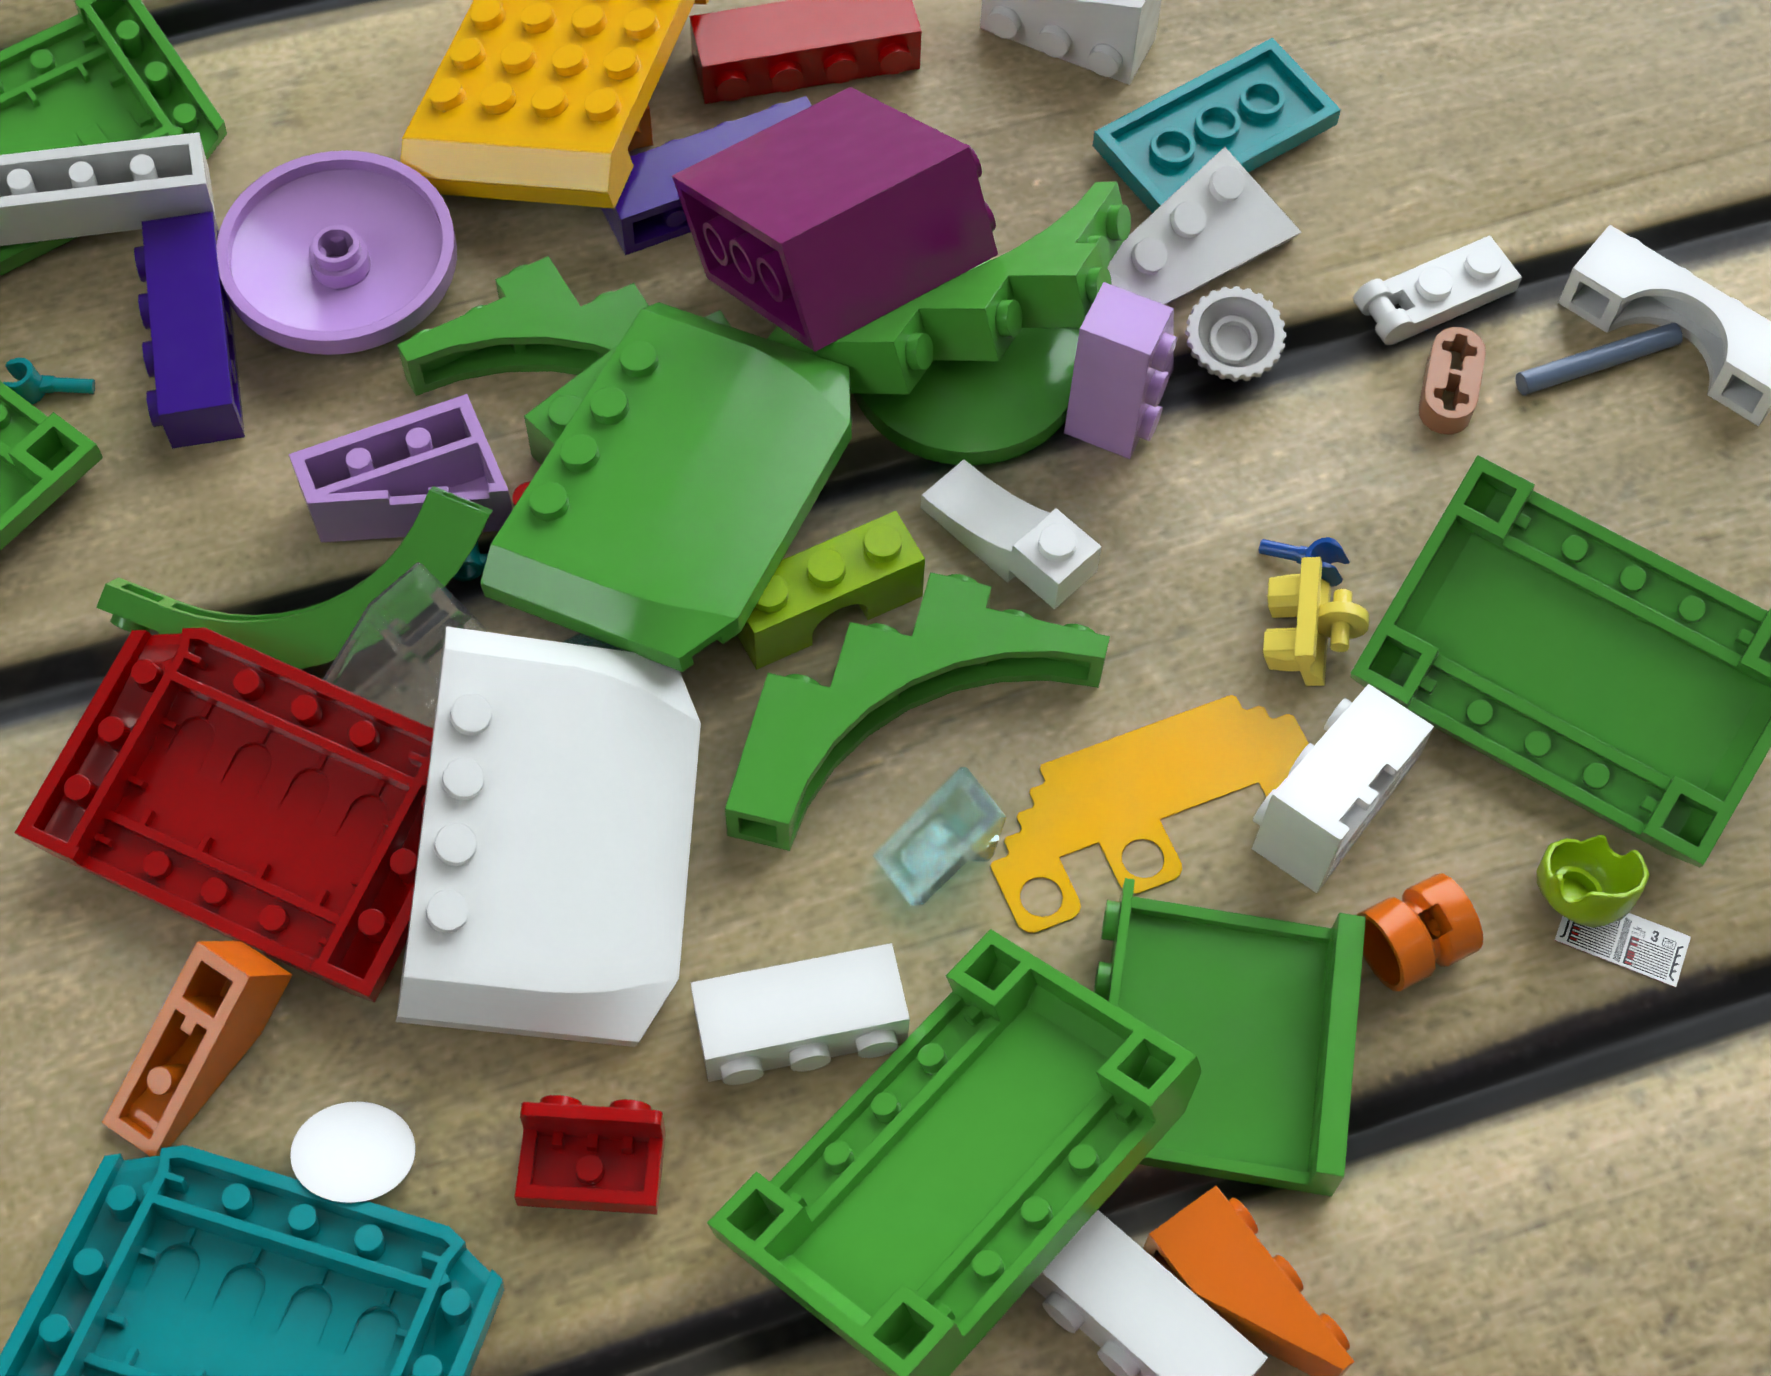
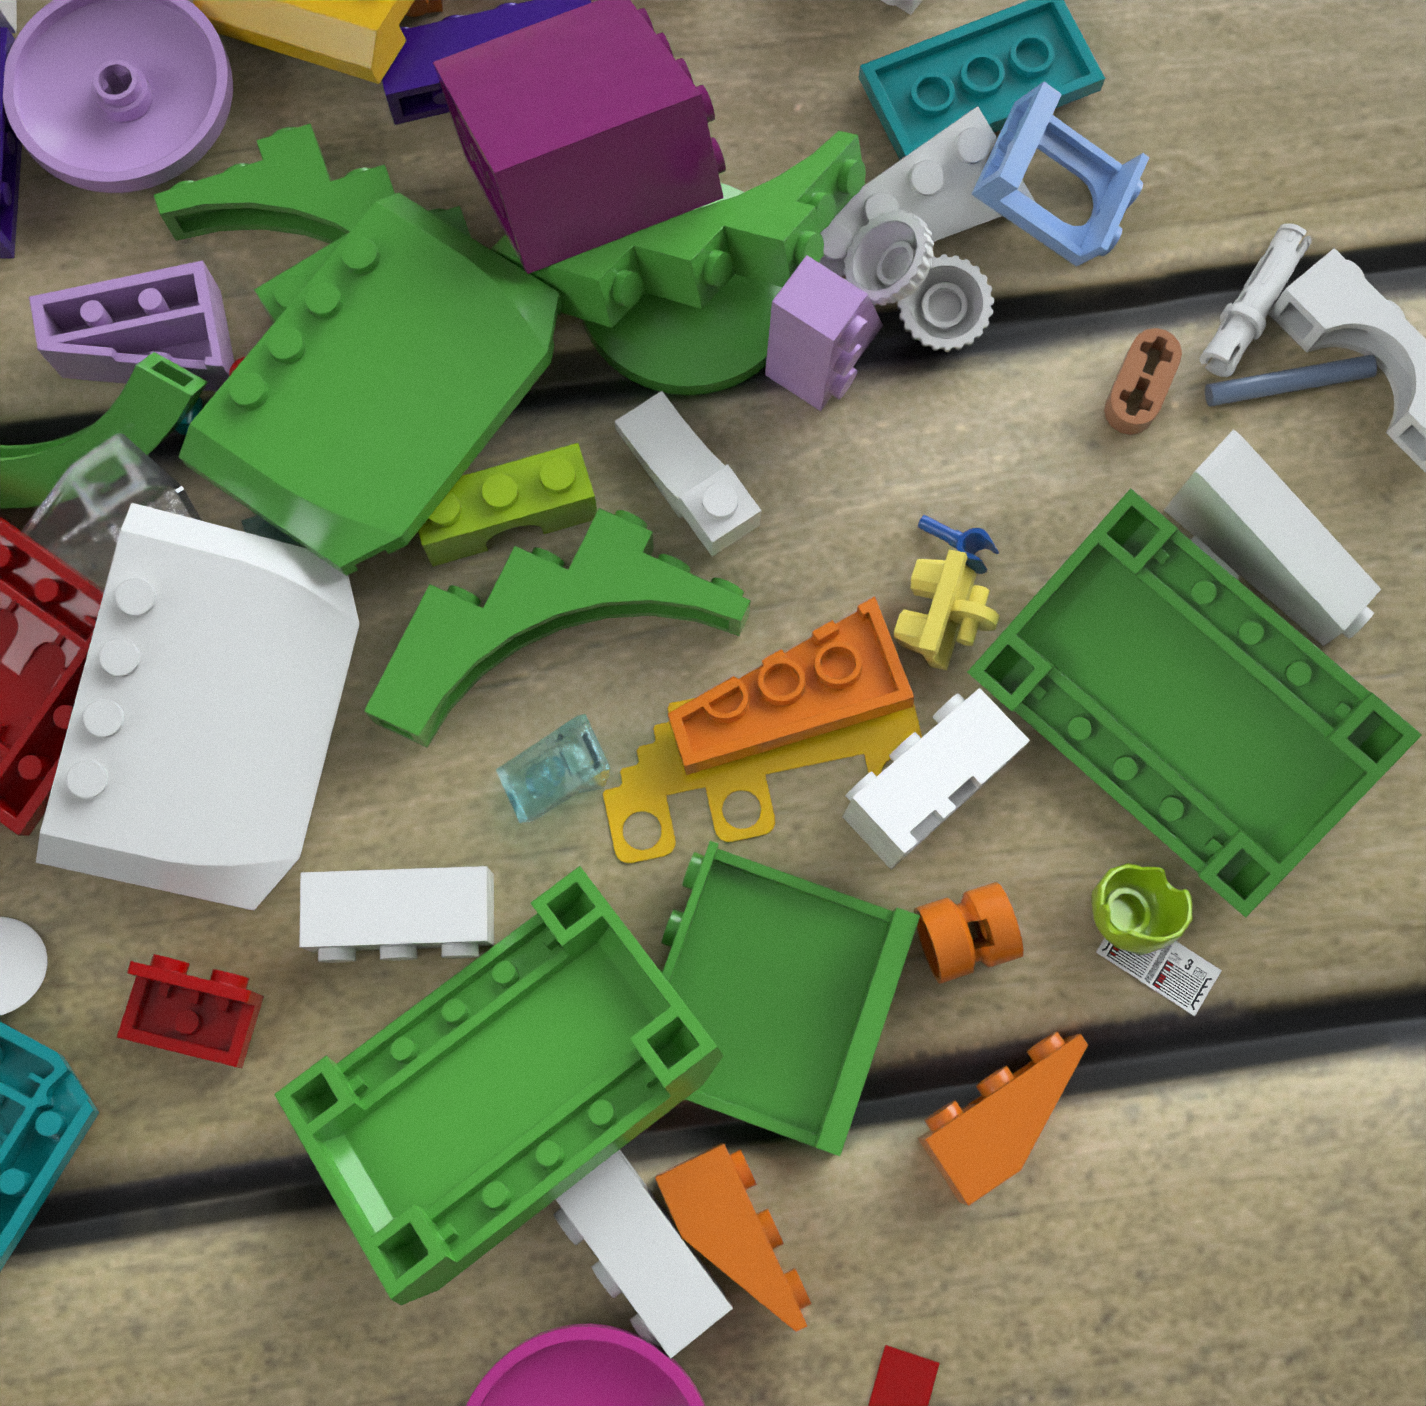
camera: 10 degrees right, 15 degrees up
(1182, 281) = (890, 257): none -> white hat
(1189, 722) = (817, 687): none -> orange wing
(1374, 208) = (1109, 182): none -> light blue panel
(1438, 290) = (1154, 284): white plate -> none
(1504, 1129) = (997, 1131): none -> orange slope
(1540, 304) = (1246, 316): none -> white pin
(1623, 487) = (1274, 541): none -> white slope

